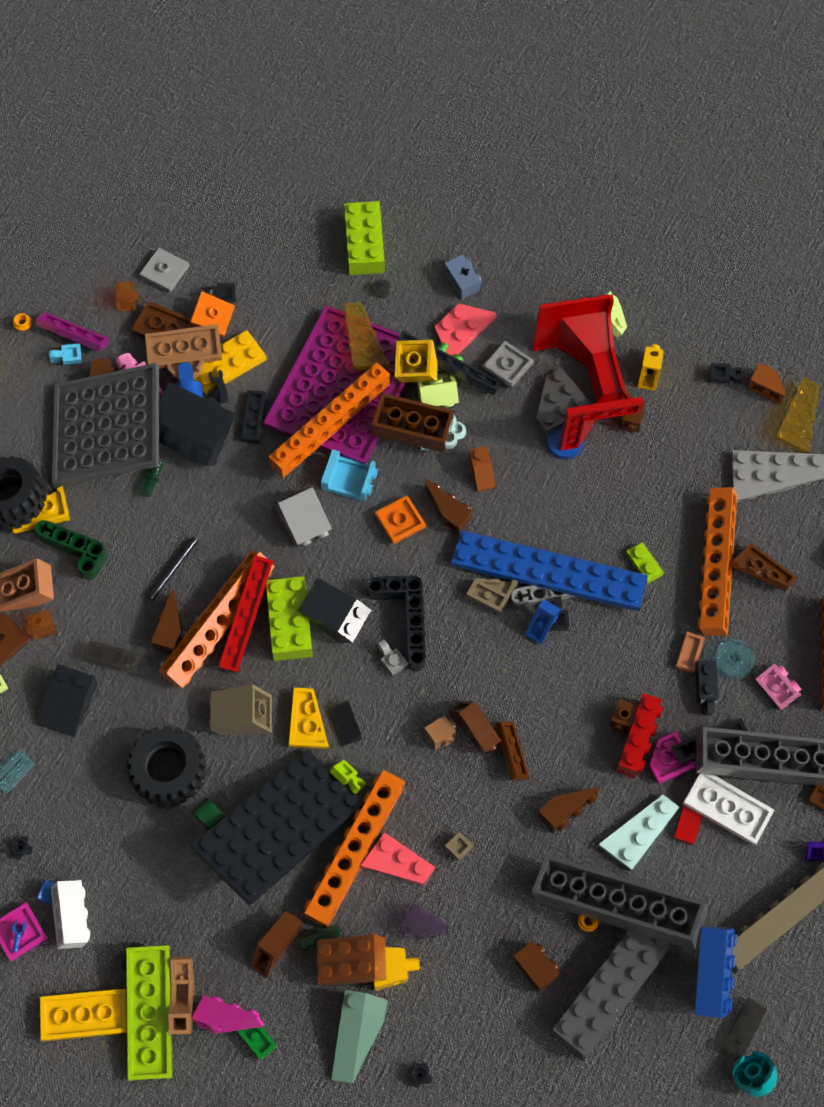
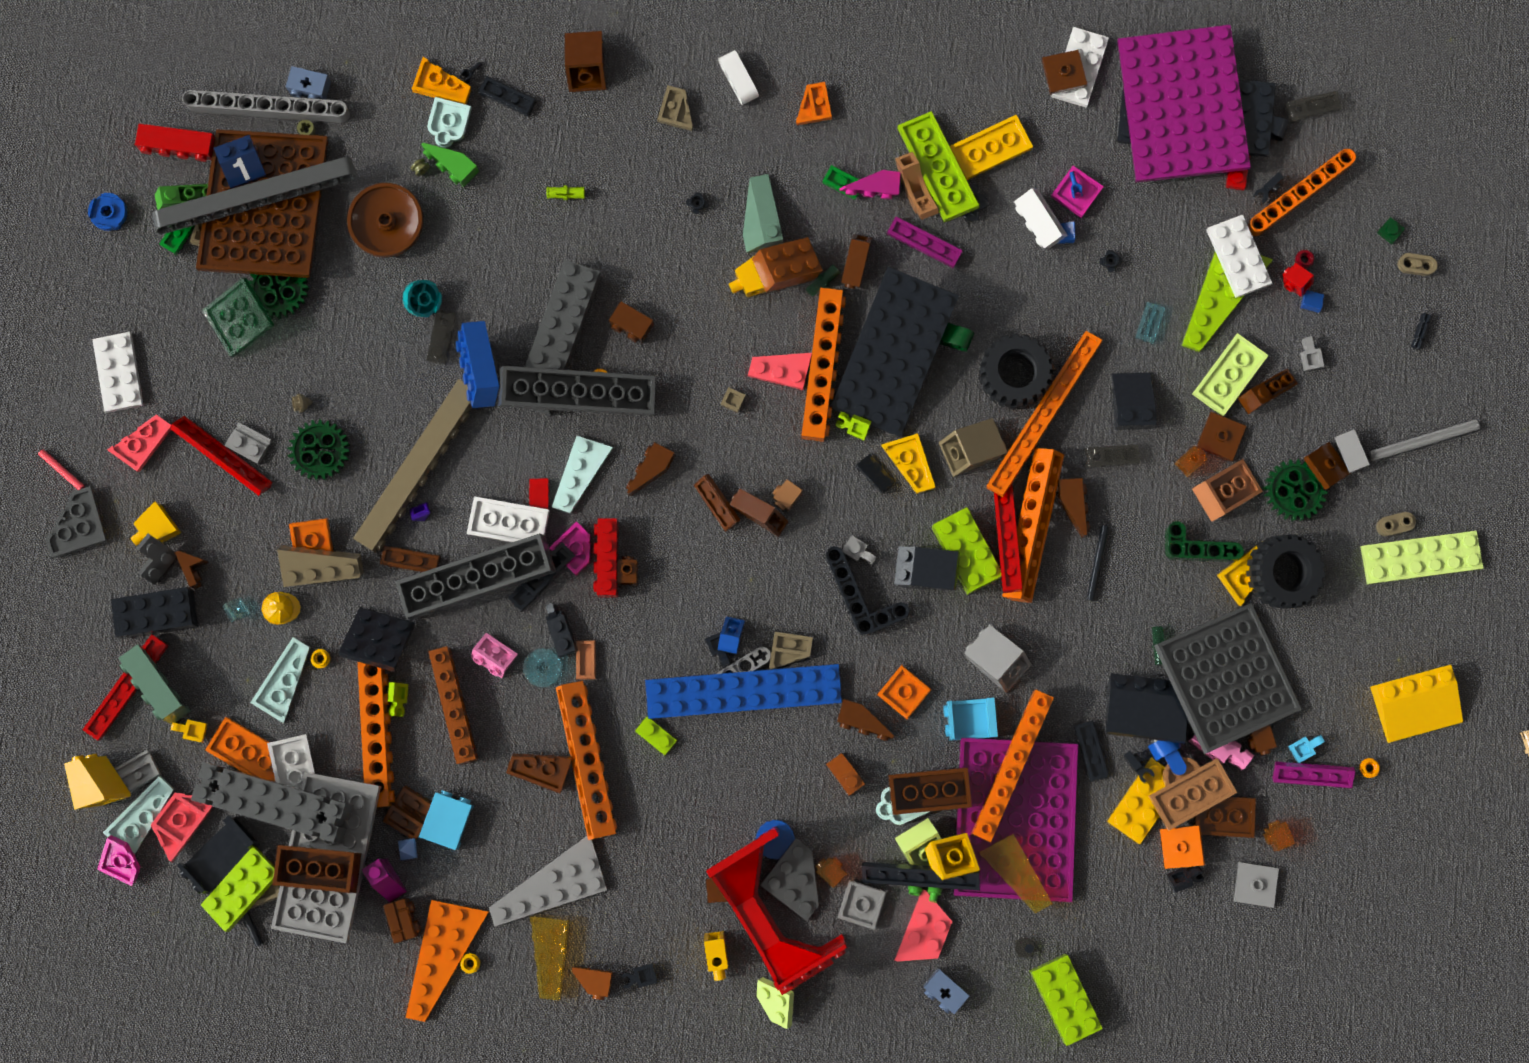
camera: 165 degrees right, 15 degrees up
(157, 717) = (1044, 414): none -> orange plate
(198, 937) = (924, 242): none -> magenta plate
(423, 924) = (739, 321): clear purple slope -> none
(525, 397) = (831, 871): none -> clear orange brick

